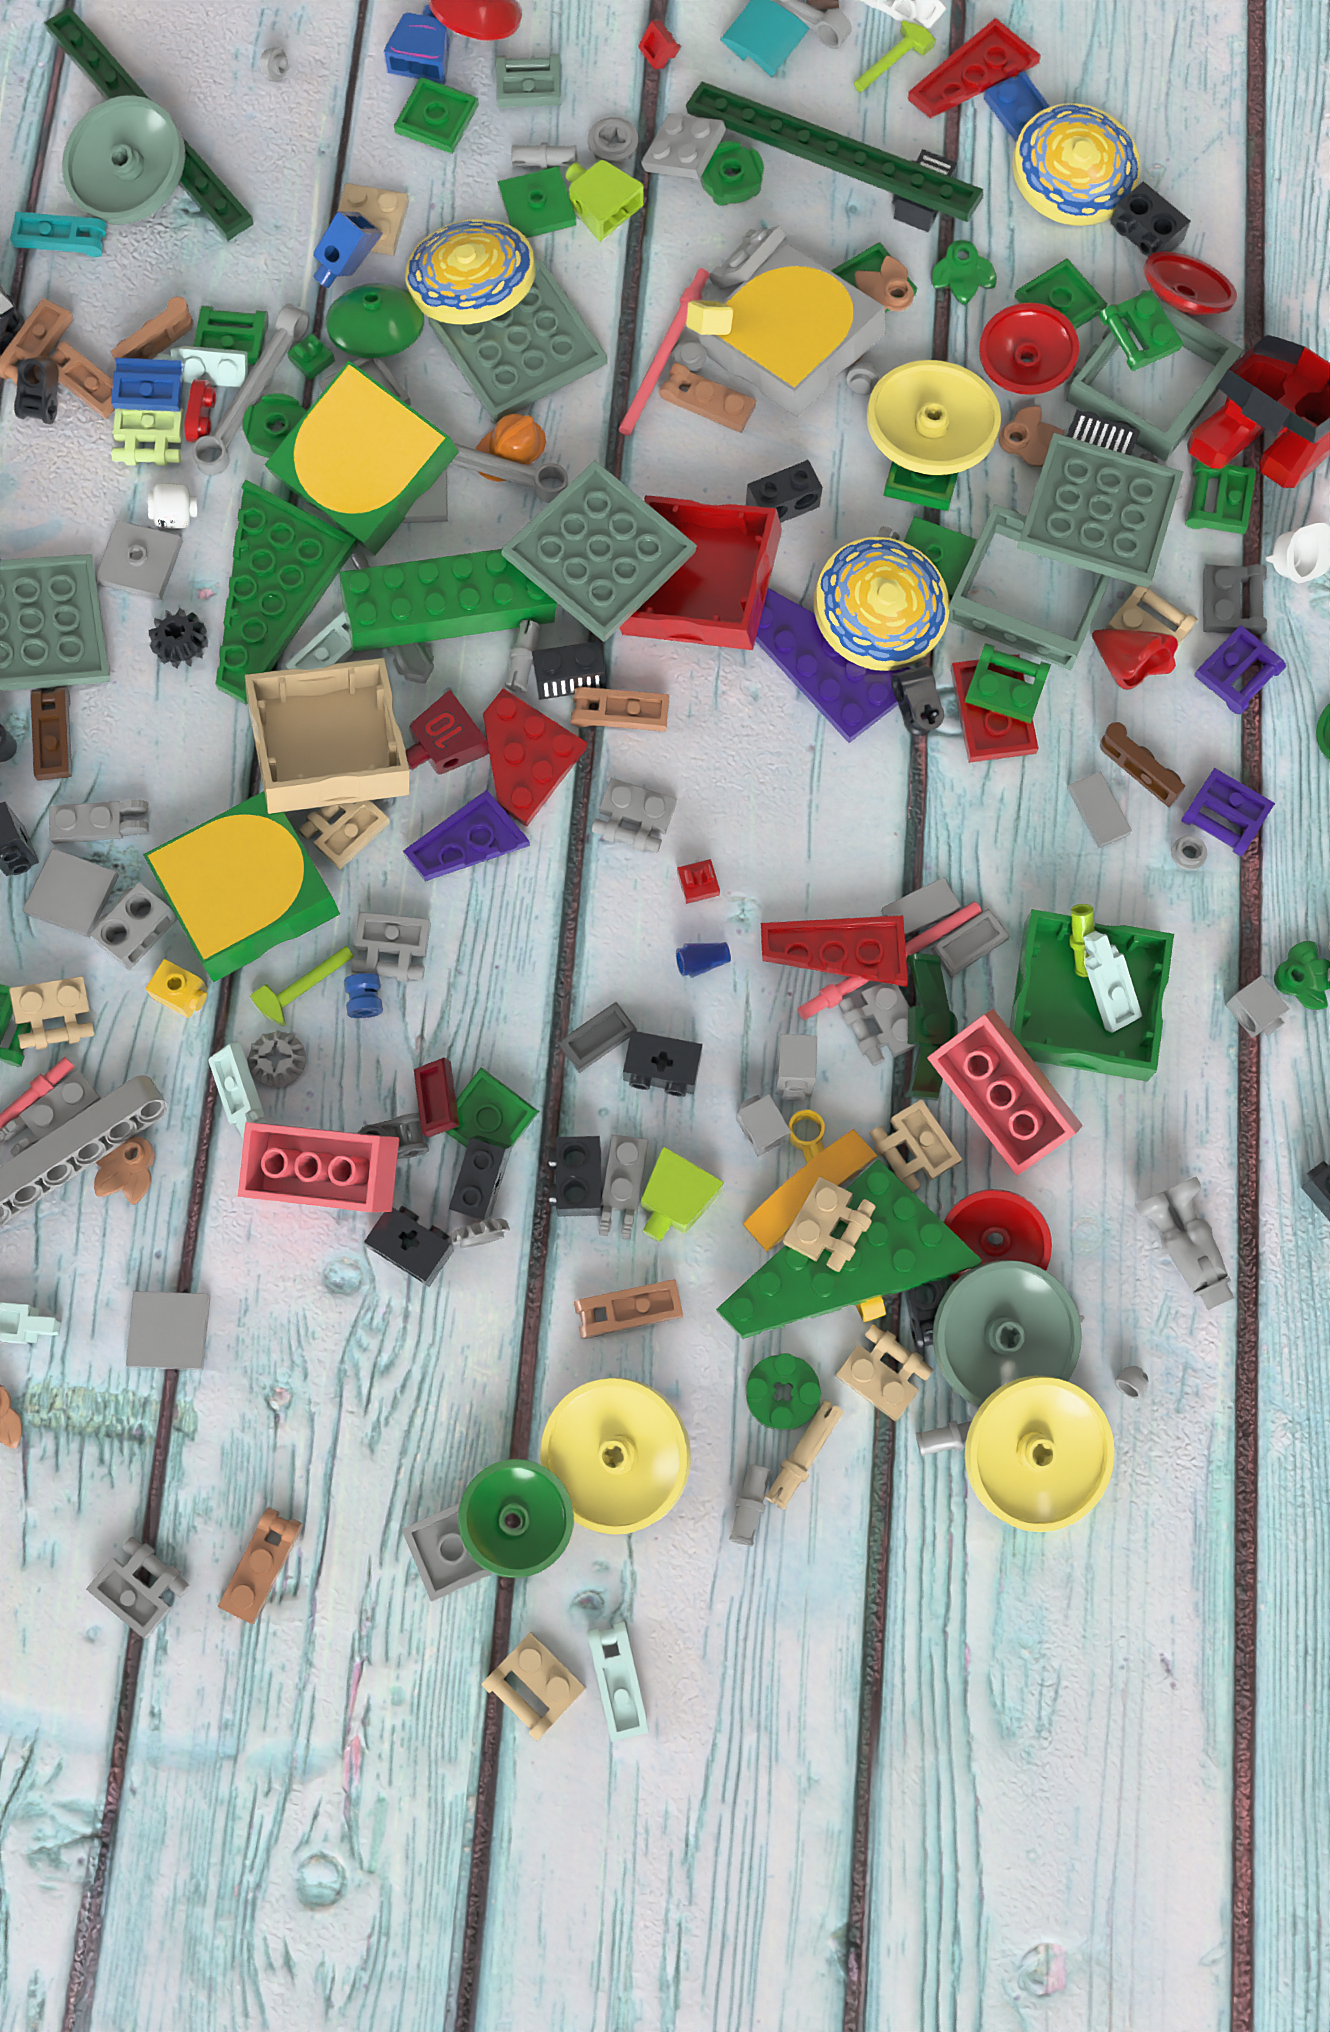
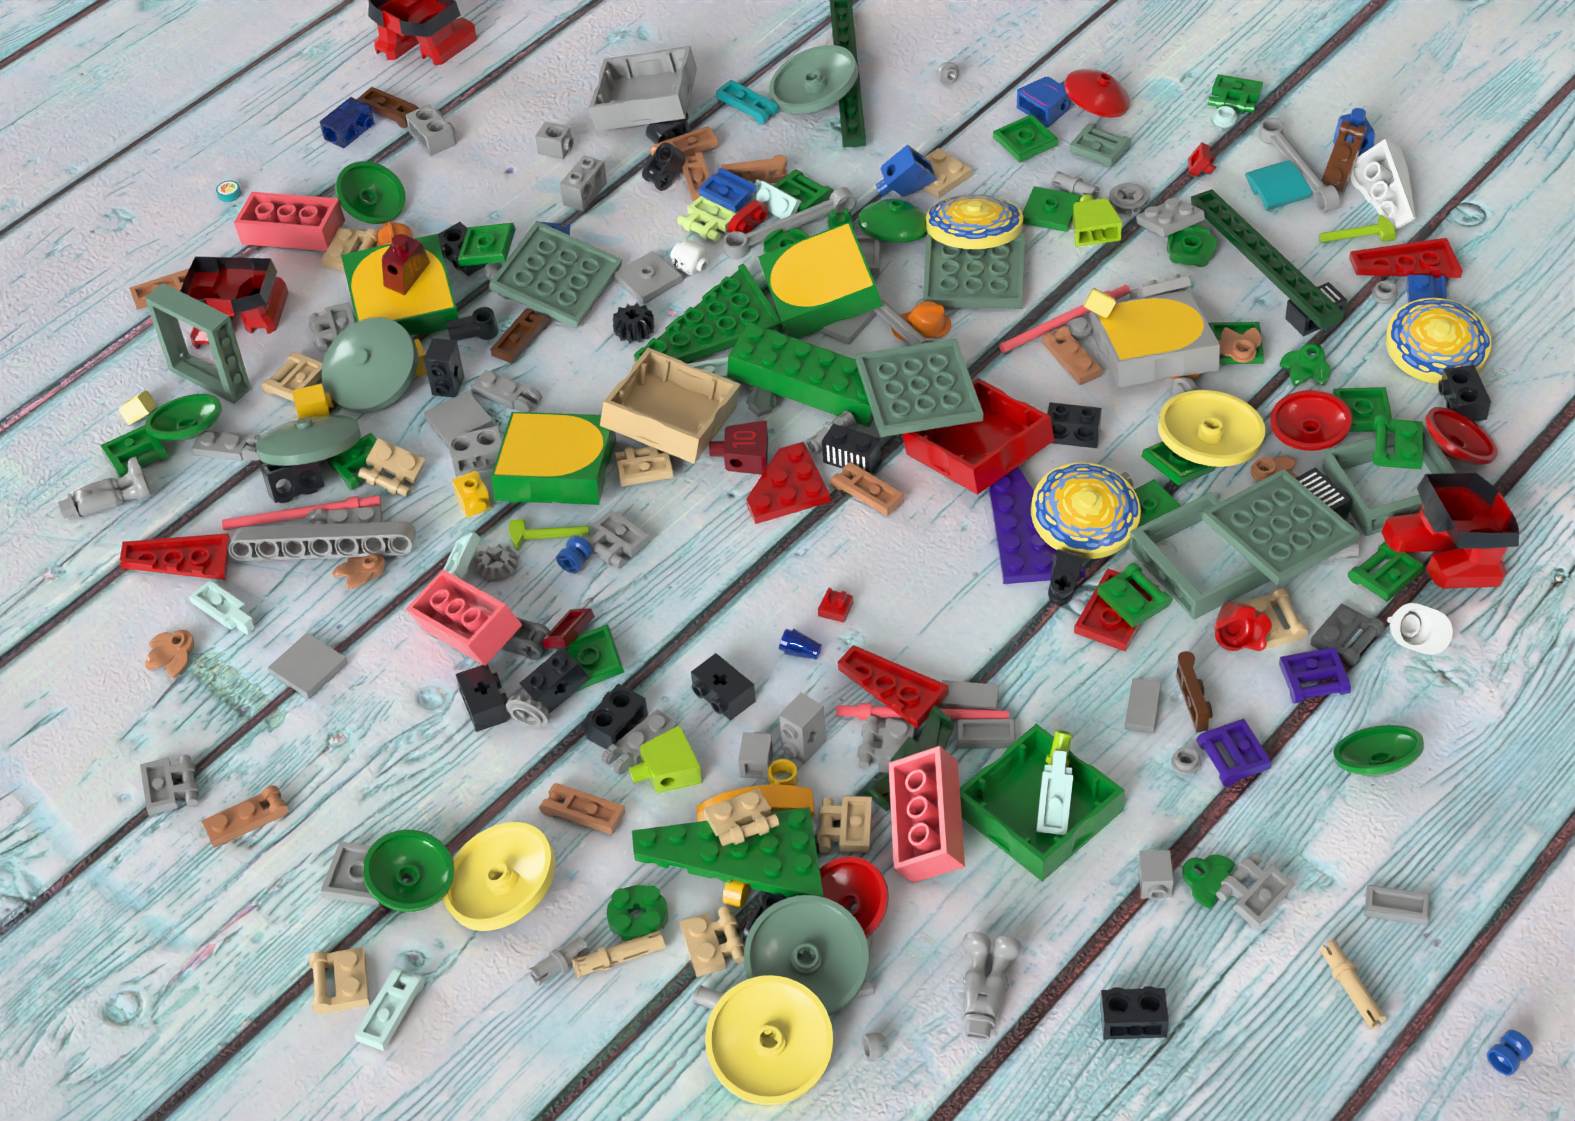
camera: 40 degrees right, 25 degrees down
(465, 839) = (709, 507): dark purple wing -> none
(597, 1037) = (693, 653): dark grey tile -> none
(638, 807) = (831, 545): light grey plate -> none
(974, 121) = (1385, 292): none -> light grey plate

